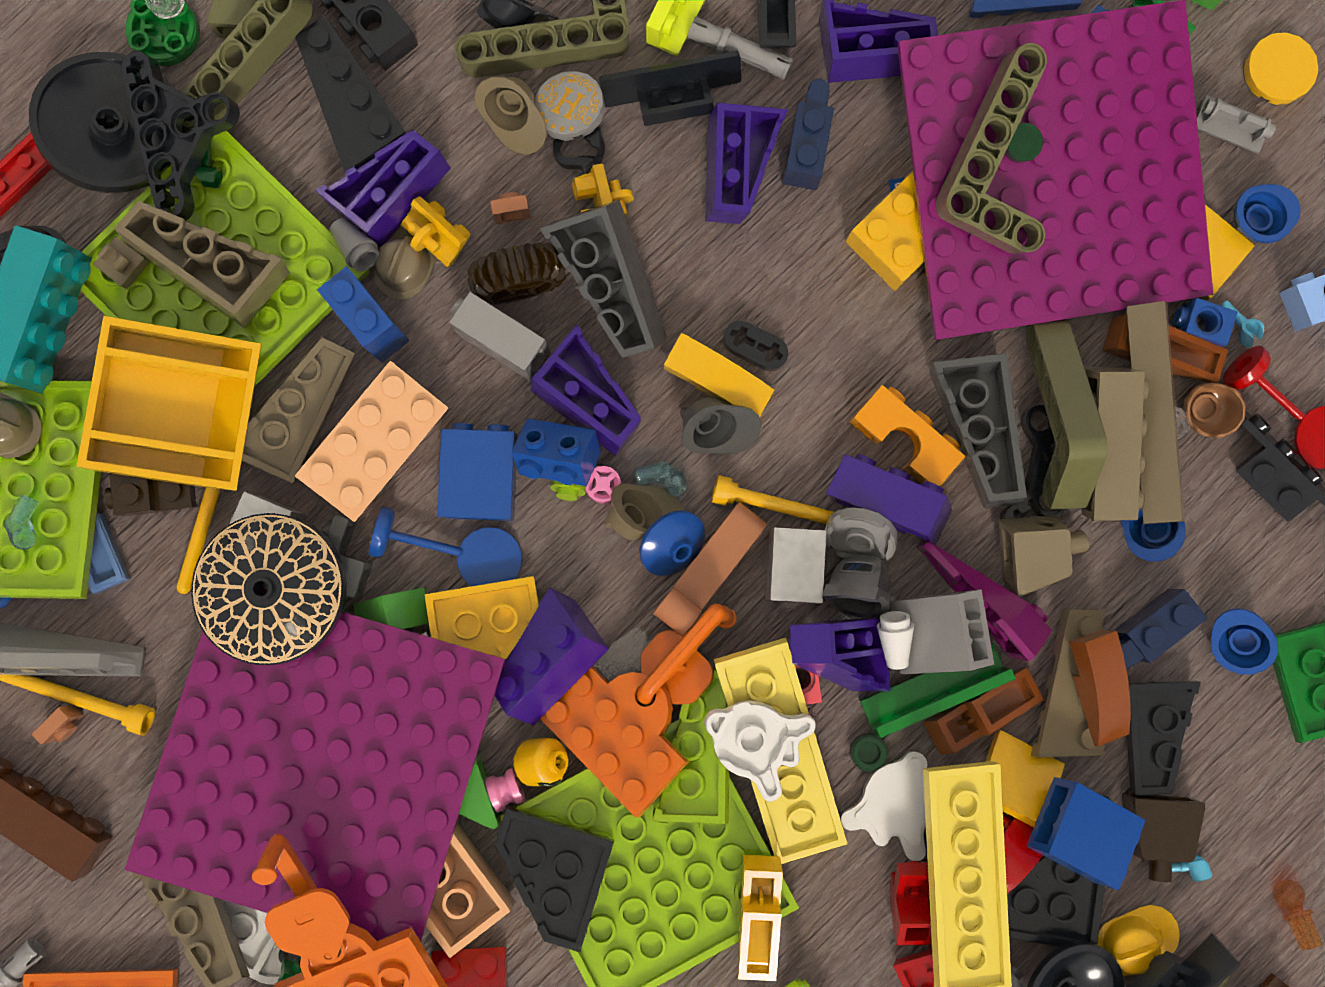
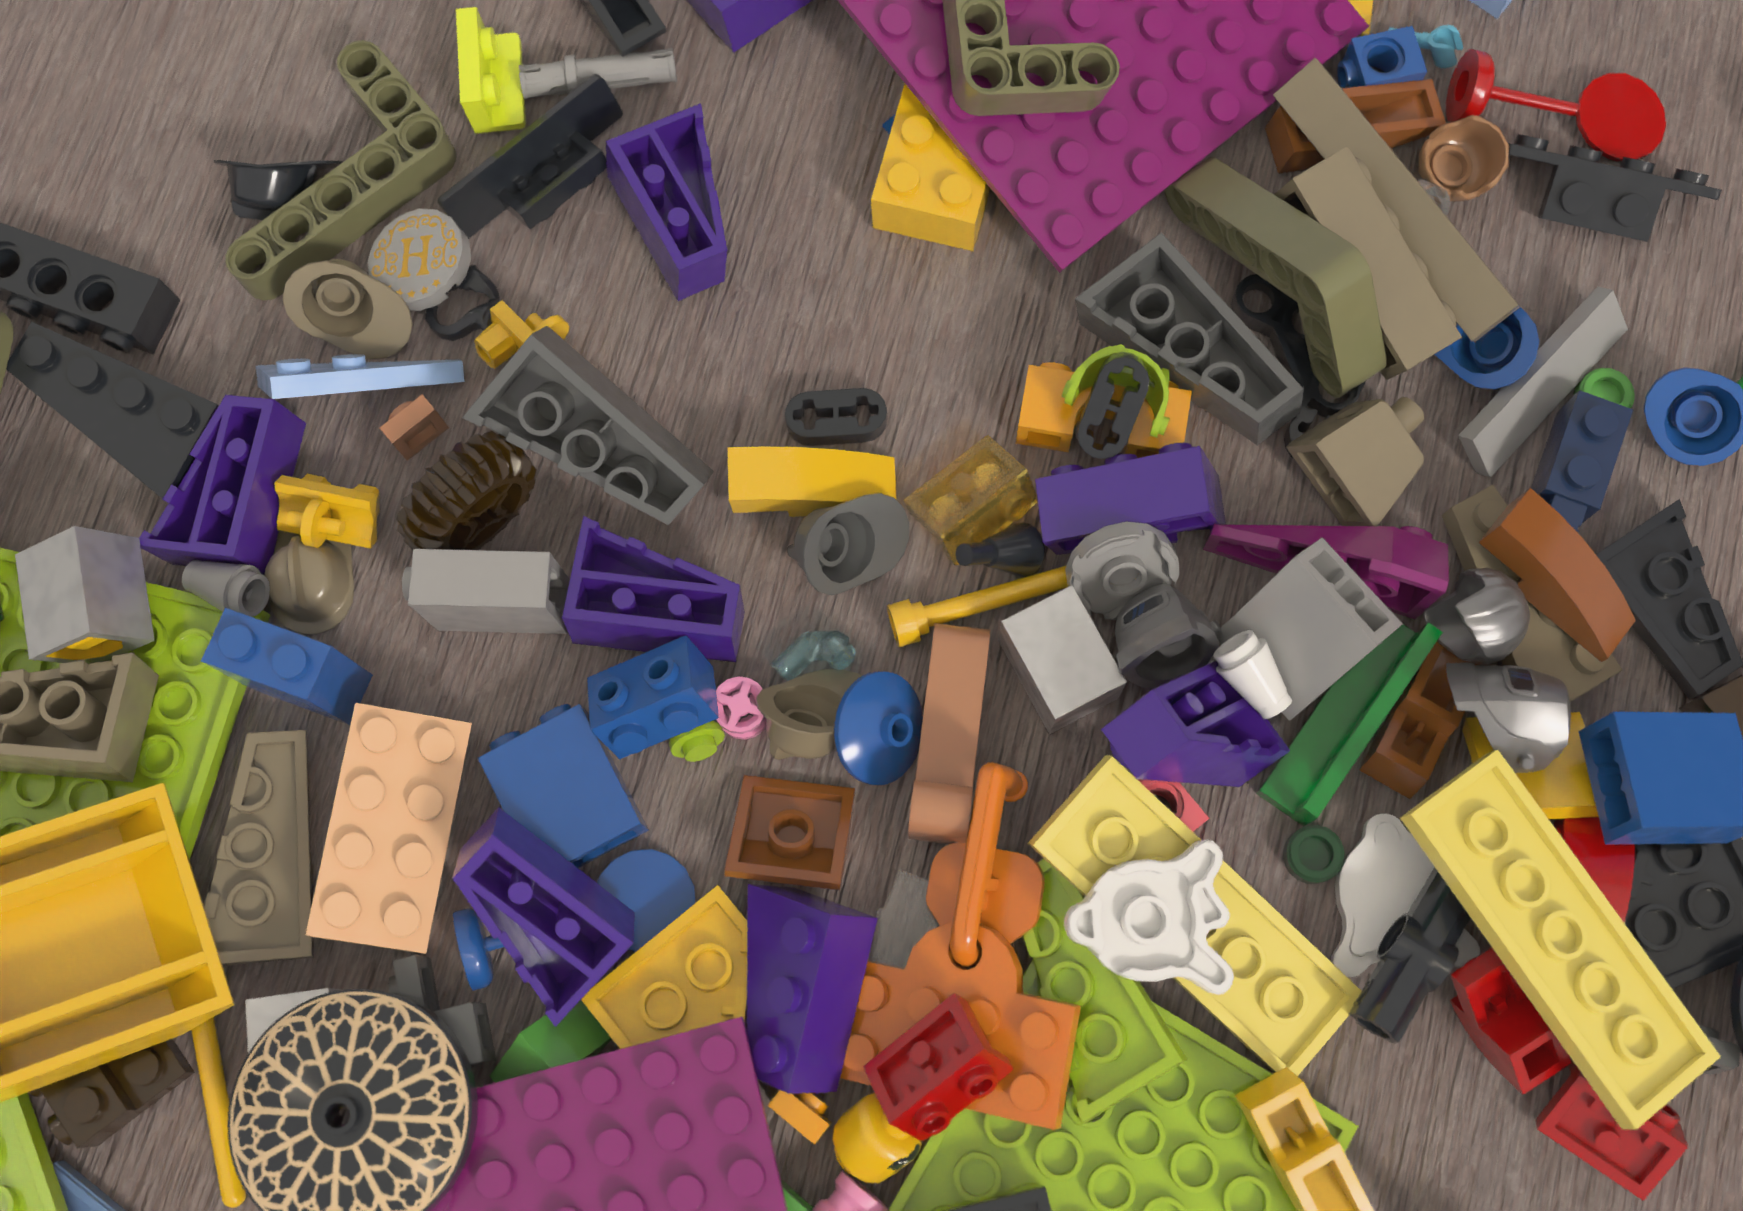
camera: 15 degrees left, 10 degrees down
(271, 207) = (84, 596): none -> flat silver piece
(430, 539) = (543, 911): none -> dark purple wedge
(491, 156) = (352, 374): none -> light blue wing
(509, 727) = (802, 1112): none -> light orange plate
(590, 571) = (791, 832): none -> dark orange slope
(591, 749) = (936, 1070): none -> red bracket
(803, 441) = (973, 496): none -> clear yellow bracket
(806, 485) = (1012, 550): none -> black cone
(809, 138) = (750, 127): dark blue hinge -> none
(884, 842) = (1413, 960): none -> black piece
(909, 434) = (1125, 410): none -> black beam
(936, 424) = (1158, 383): none -> lime helmet
(1026, 746) = (1518, 708): none -> flat silver helmet
(1042, 683) = (1482, 617): none -> flat silver hair
(1185, 565) = (1554, 373): none -> light grey tile
(1204, 593) = (1609, 385): none -> bright green tile

